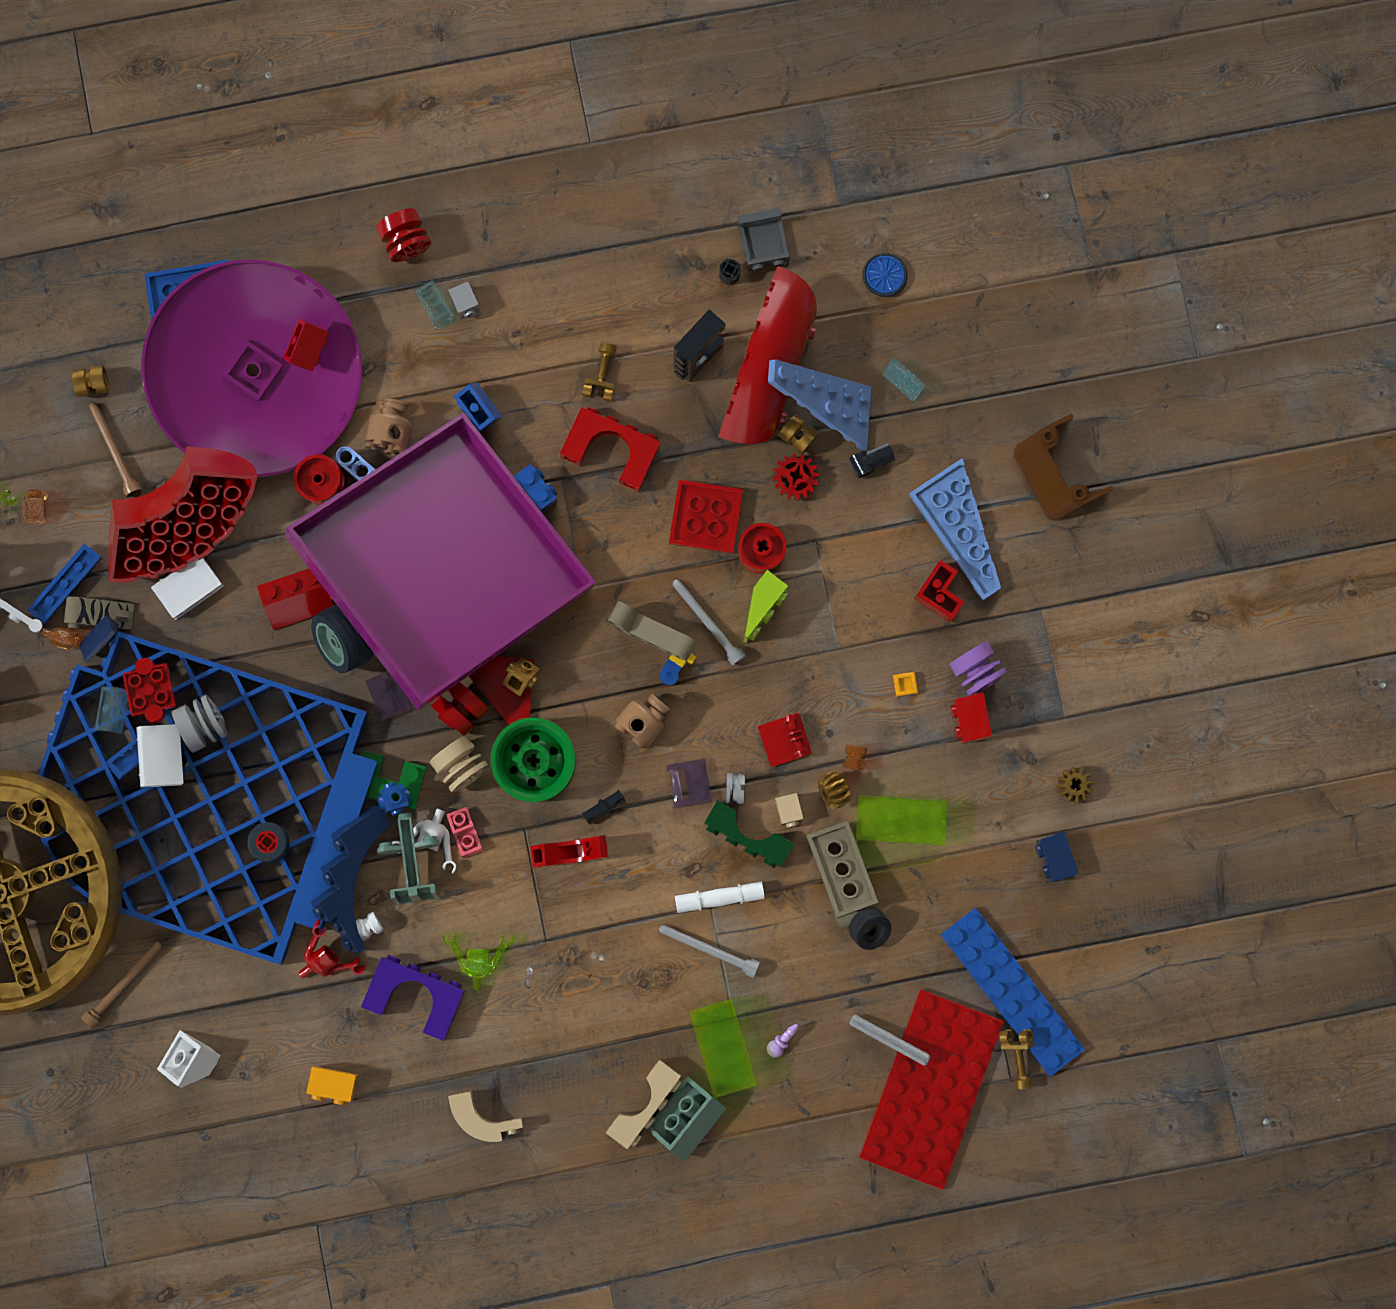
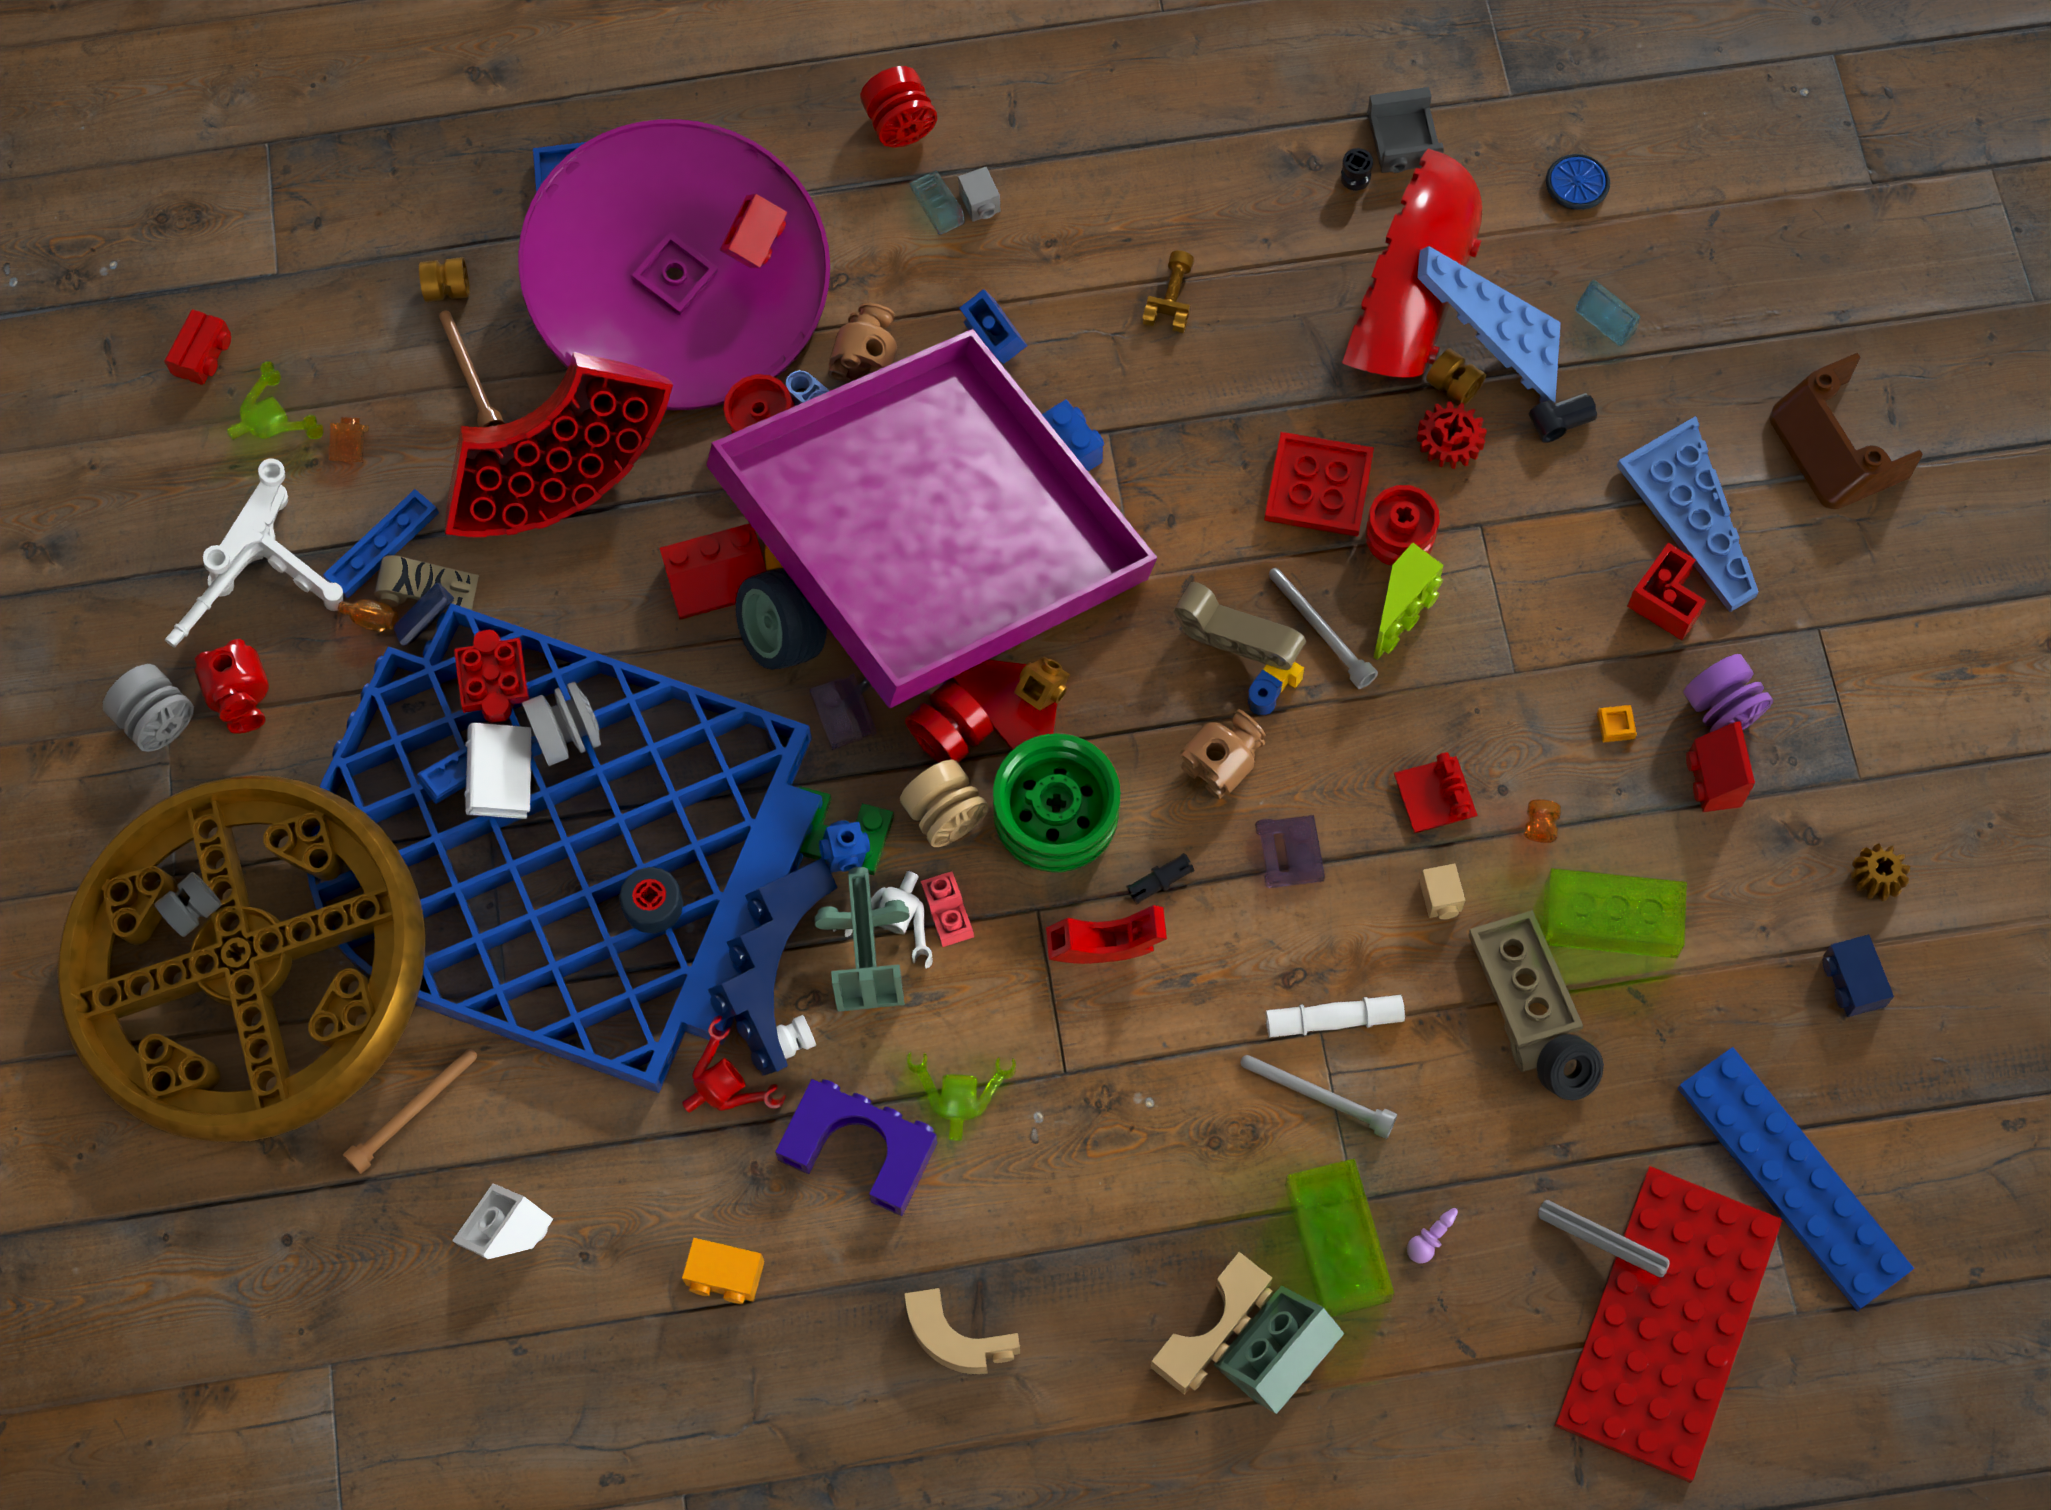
camera: 10 degrees right, 15 degrees down
(111, 709) = (433, 708): clear light blue slope -> none
(187, 587) = (558, 554): white piece -> none
(591, 425) = (1156, 358): red arch -> none
(698, 346) = (1308, 250): black arch -> none
(723, 821) = (1414, 947): dark green arch -> none
(735, 788) = (1365, 856): light grey wheel -> none
(834, 790) = (1512, 862): pearl gold gear -> none
(1026, 1042) = (1822, 1244): pearl gold bar -> none

